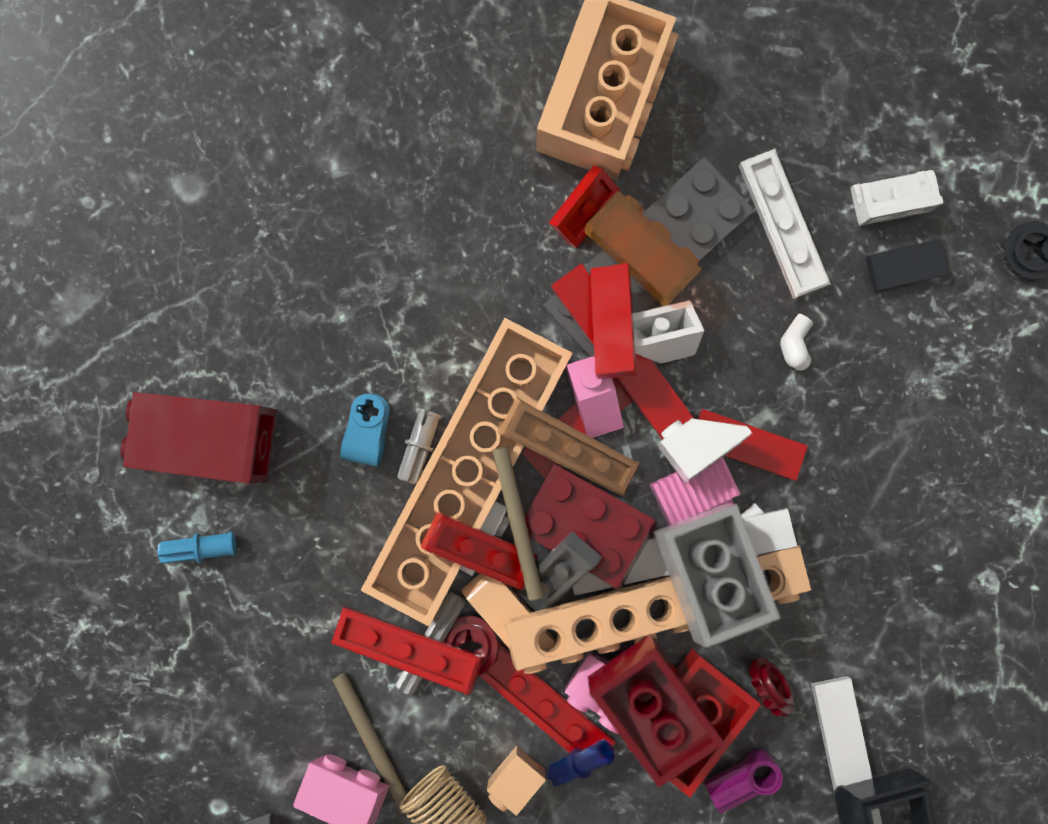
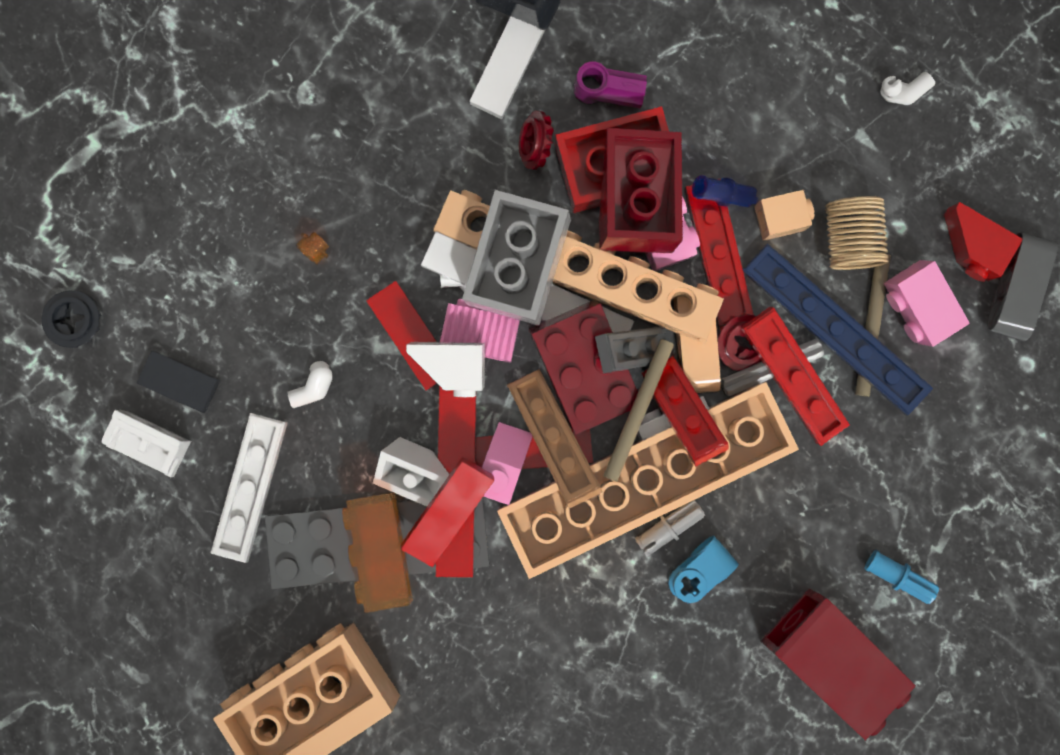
camera: 140 degrees left, 0 degrees up
(400, 716) = (837, 330): none -> dark blue tile
(583, 205) = (397, 623): red plate -> none
(884, 457) = (313, 247): none -> clear orange plate

